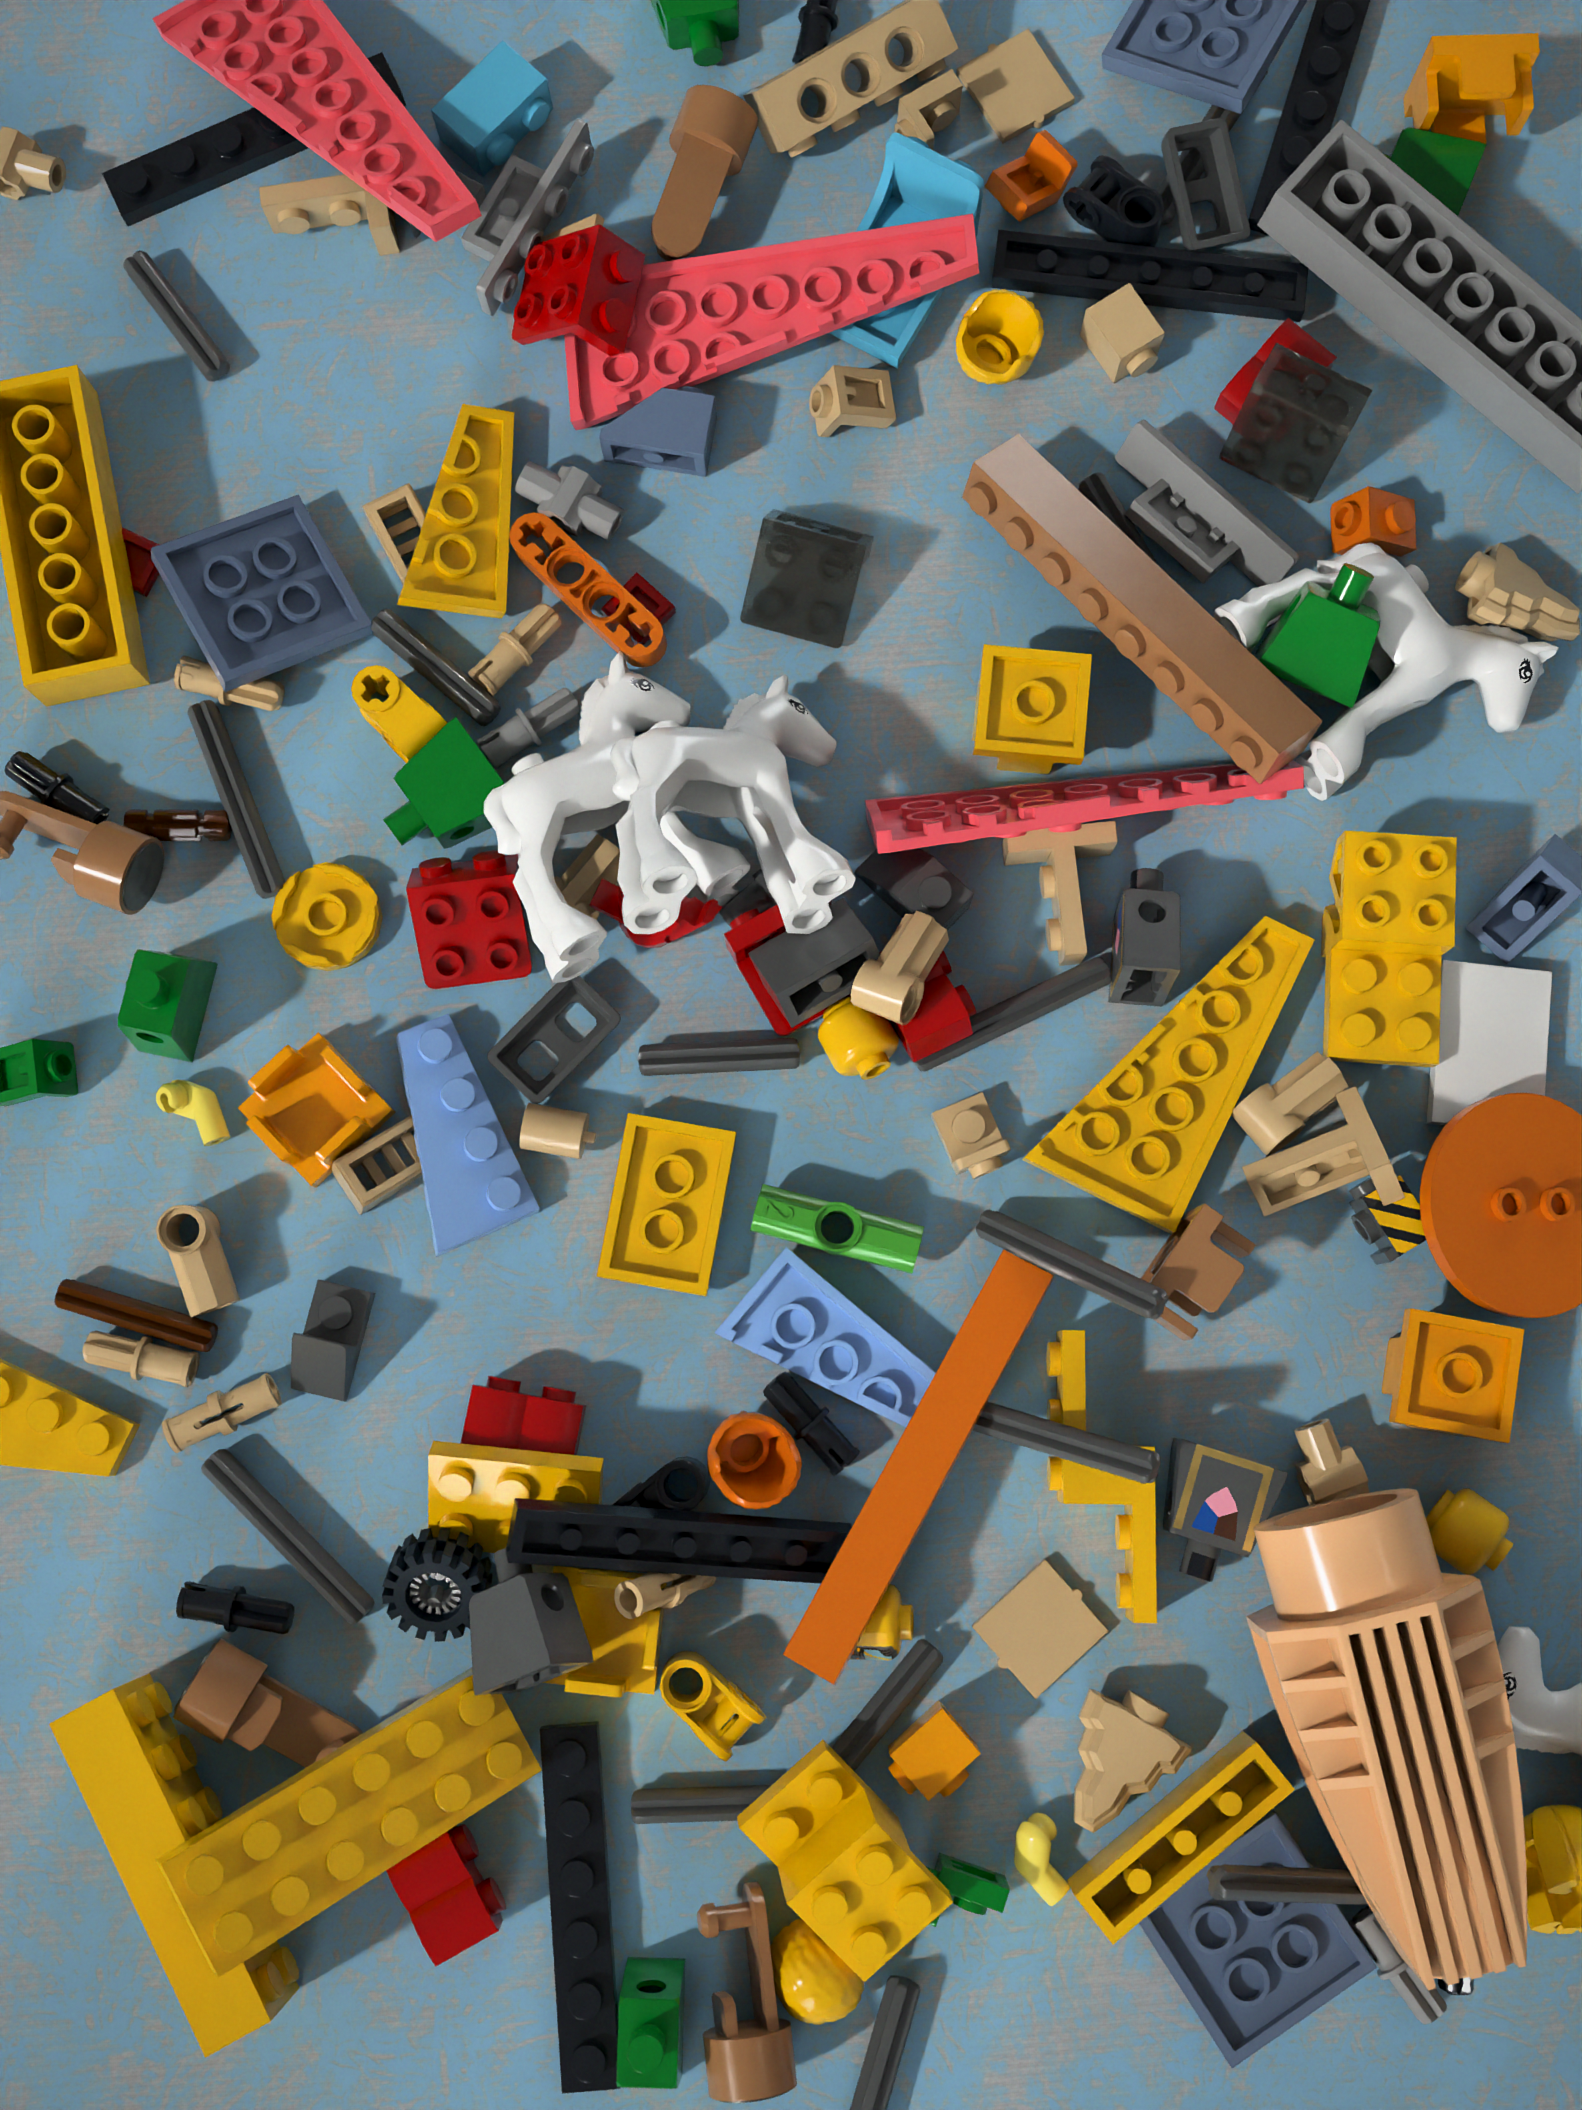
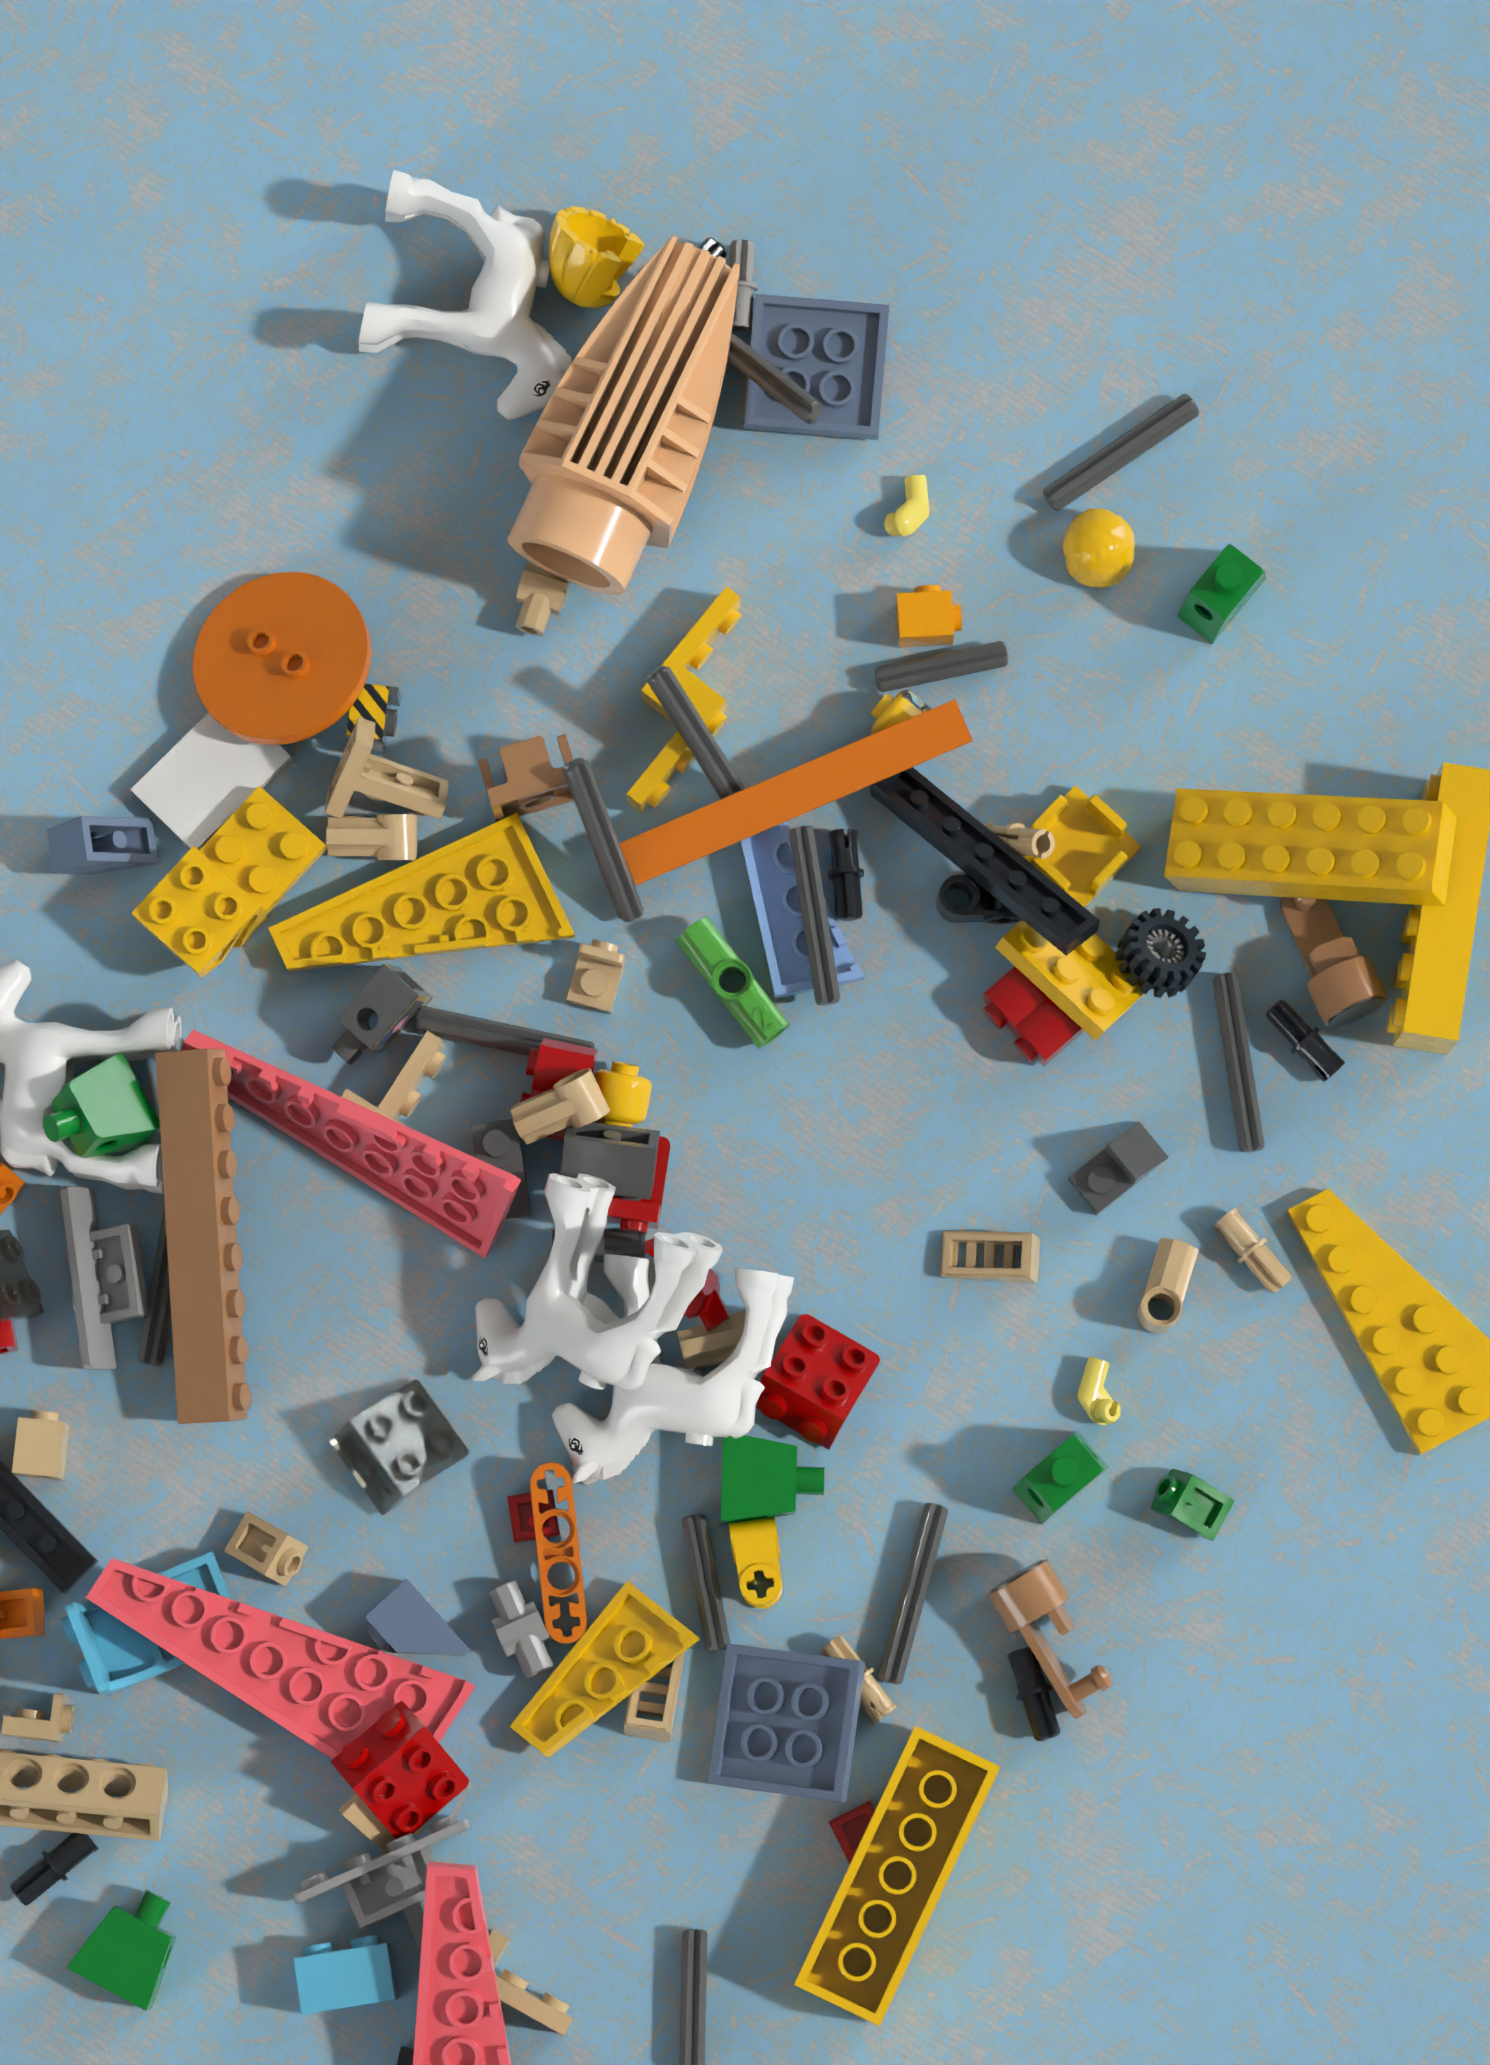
camera: 145 degrees left, 0 degrees up
(136, 1315) = (1236, 1283): reddish brown axle -> none
(180, 824) = (967, 1605): reddish brown axle -> none
(188, 1429) = (1224, 1173): tan pin -> none
(313, 1108) = (1017, 1329): light orange panel -> none
(327, 916) = (912, 1461): yellow tile -> none
(448, 1895) = (1295, 757): red brick -> none
(462, 1150) = (938, 1220): light blue wing -> none
(515, 648) = (639, 1550): tan axle -> none
(524, 1630) = (1121, 876): dark grey torso -> none
(528, 727) = (673, 1486): light grey axle -> none
(541, 1026) = (818, 1236): dark grey piece -> none
(555, 1131) = (867, 1190): tan piece -> none
(580, 1906) = (1217, 696): black plate -> none
(667, 1204) = (830, 1085): yellow plate -> none
(692, 1803) = (1086, 690): dark grey axle -> none
(710, 143) = (217, 1818): medium nougat piece -> none
(711, 1705) = (1043, 746): yellow piece -> none
(719, 1056) = (720, 1158): dark grey axle -> none
(753, 1460) = (900, 875): orange hair -> none
(756, 2055) = (1168, 526): medium nougat piece -> none
(807, 1354) = (814, 915): none -> dark grey axle
(844, 1861) = (1030, 596): yellow bracket -> none
(971, 1885) = (965, 525): green bracket -> none
(999, 337) = (132, 1506): yellow hair -> none
(1031, 707) = (326, 1225): yellow panel -> none
(1039, 1628) = (800, 641): tan piece -> none
(1122, 1755) = (809, 529): tan rock -> none
(1179, 1836) = (813, 455): yellow brick -> none
(1216, 1503) = (628, 629): dark grey torso -> none
(1453, 1375) = (416, 590): light orange panel -> none
(1468, 1531) = (486, 494): yellow head -> none

